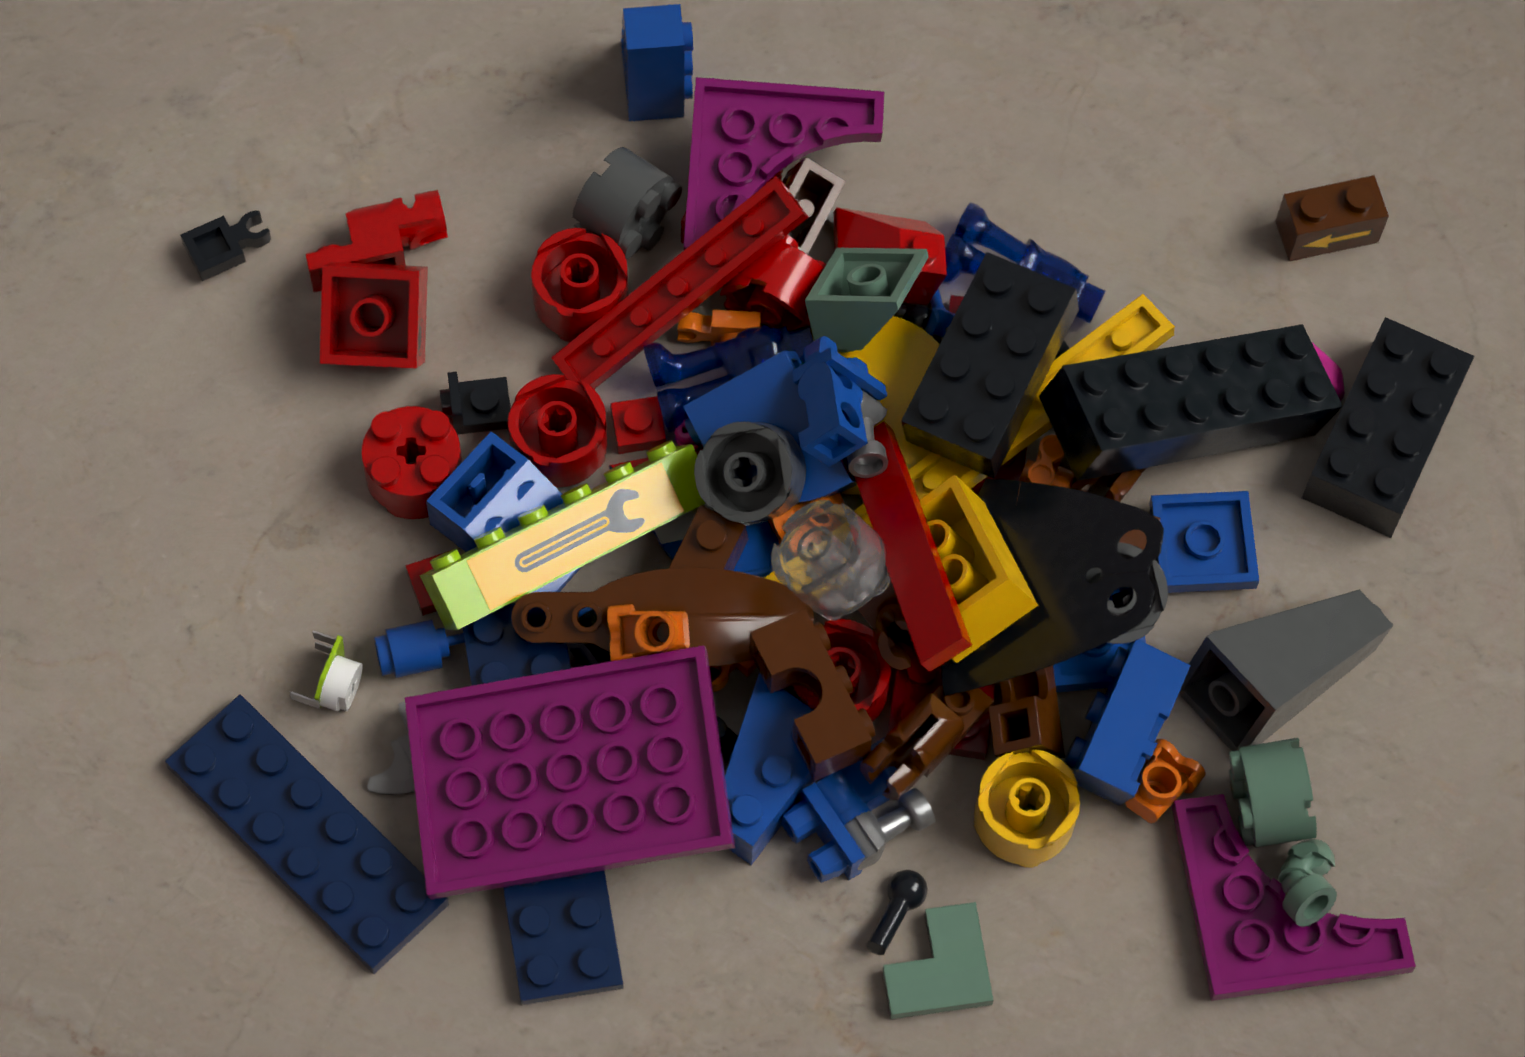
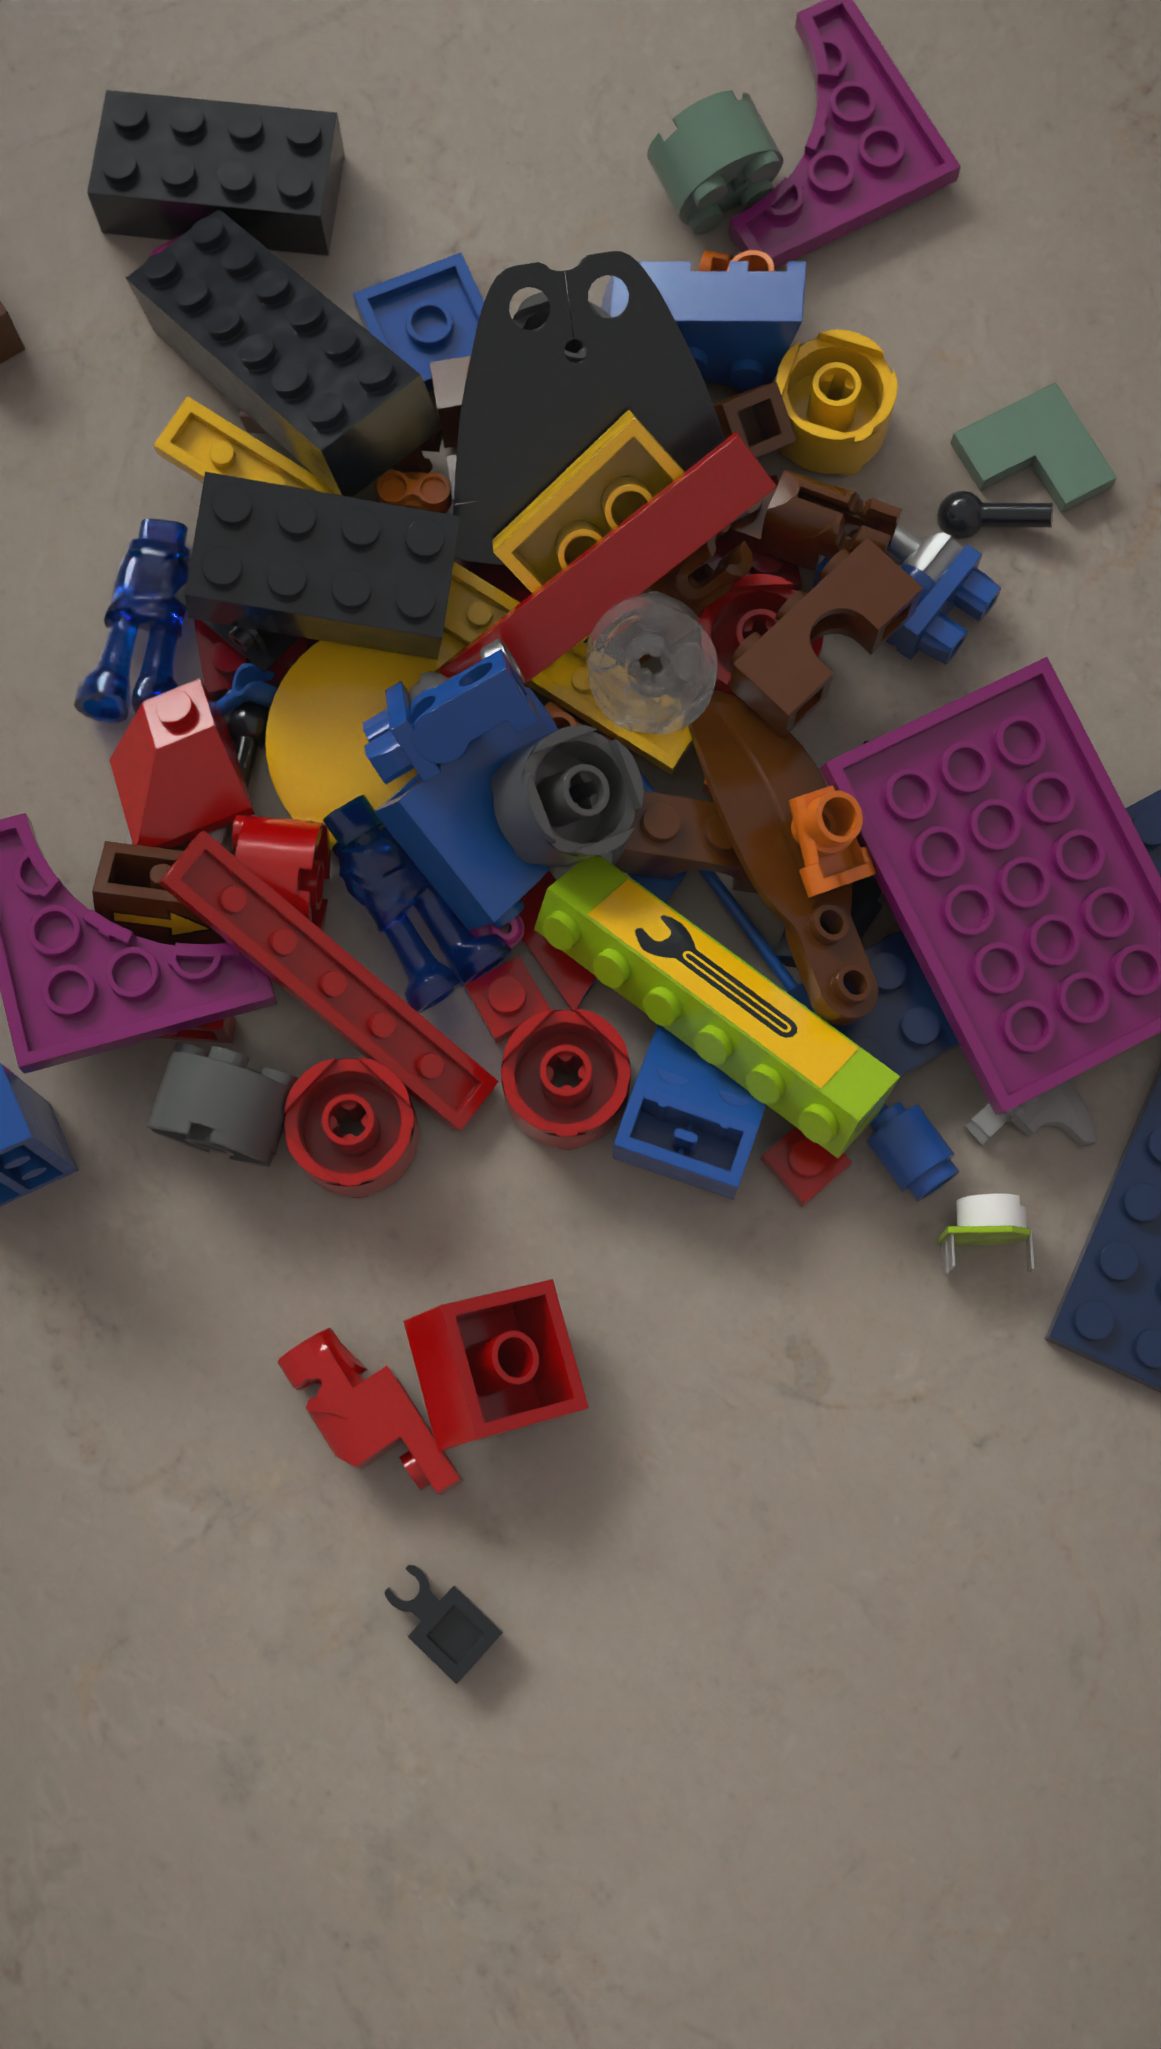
camera: 105 degrees left, 10 degrees up
(402, 438) = (685, 1208): red brick -> none
(476, 404) = (553, 1202): black bracket -> none
(716, 328) = (347, 921): orange plate -> none
(765, 770) = (892, 685): blue wedge -> none
(861, 293) = (267, 748): sand green slope -> none
(1271, 668) = (557, 185): dark grey slope -> none
(1305, 889) = (825, 95): sand green arm -> none

